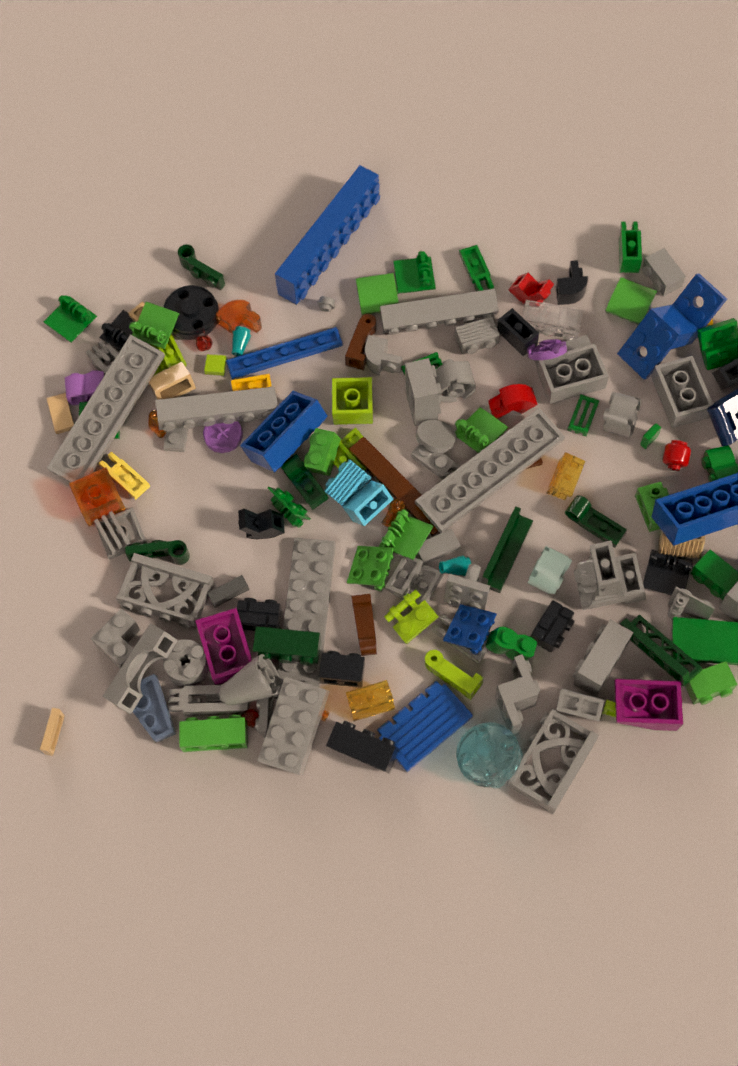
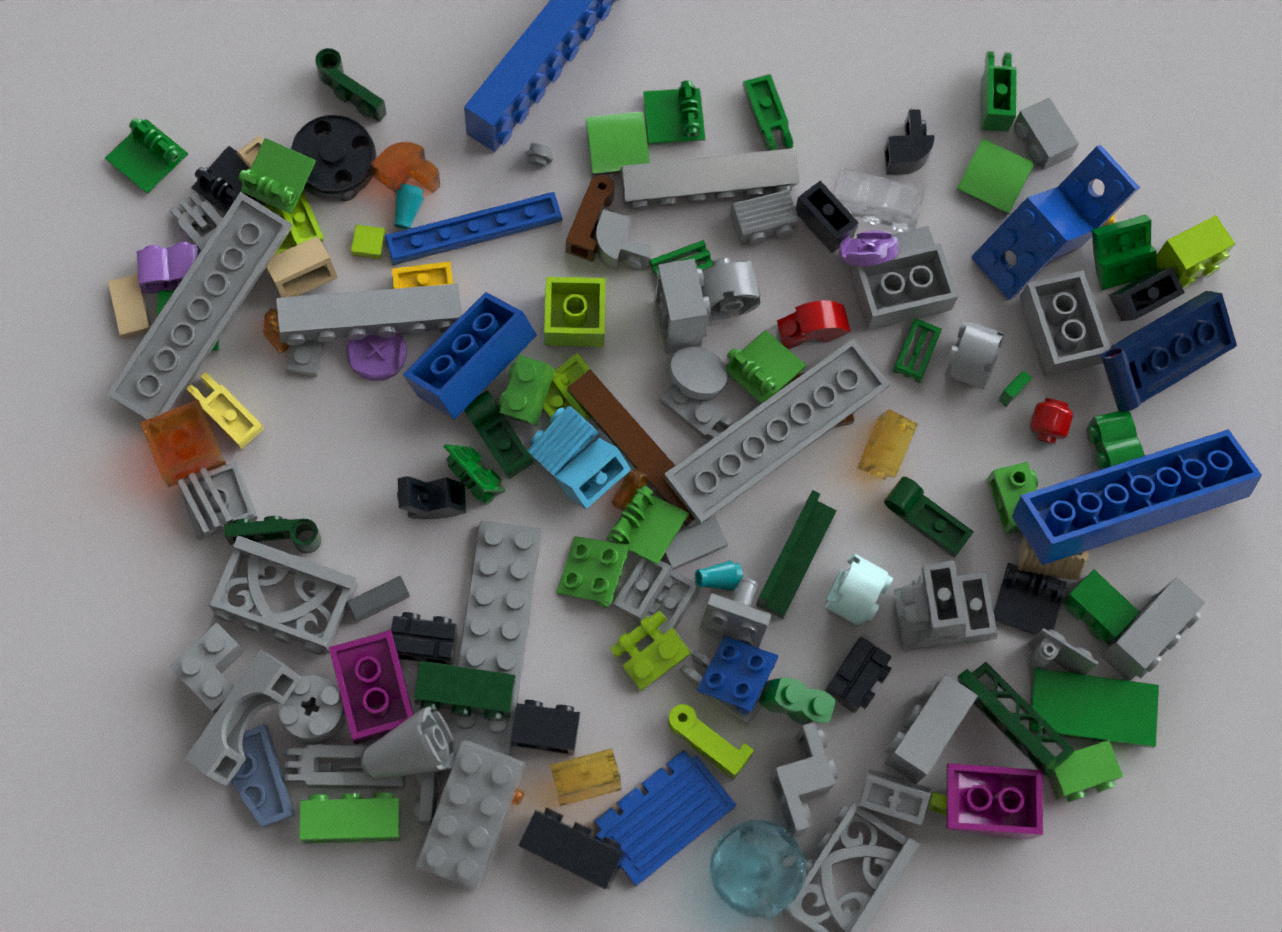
camera: 10 degrees left, 5 degrees up
(52, 732) = (107, 807): tan tile -> none
(202, 345) = (351, 210): clear red hinge -> none
(250, 717) = (407, 795): clear red hinge -> none
(364, 624) = (581, 659): reddish brown leg -> none
(527, 288) = (843, 149): red brick -> none

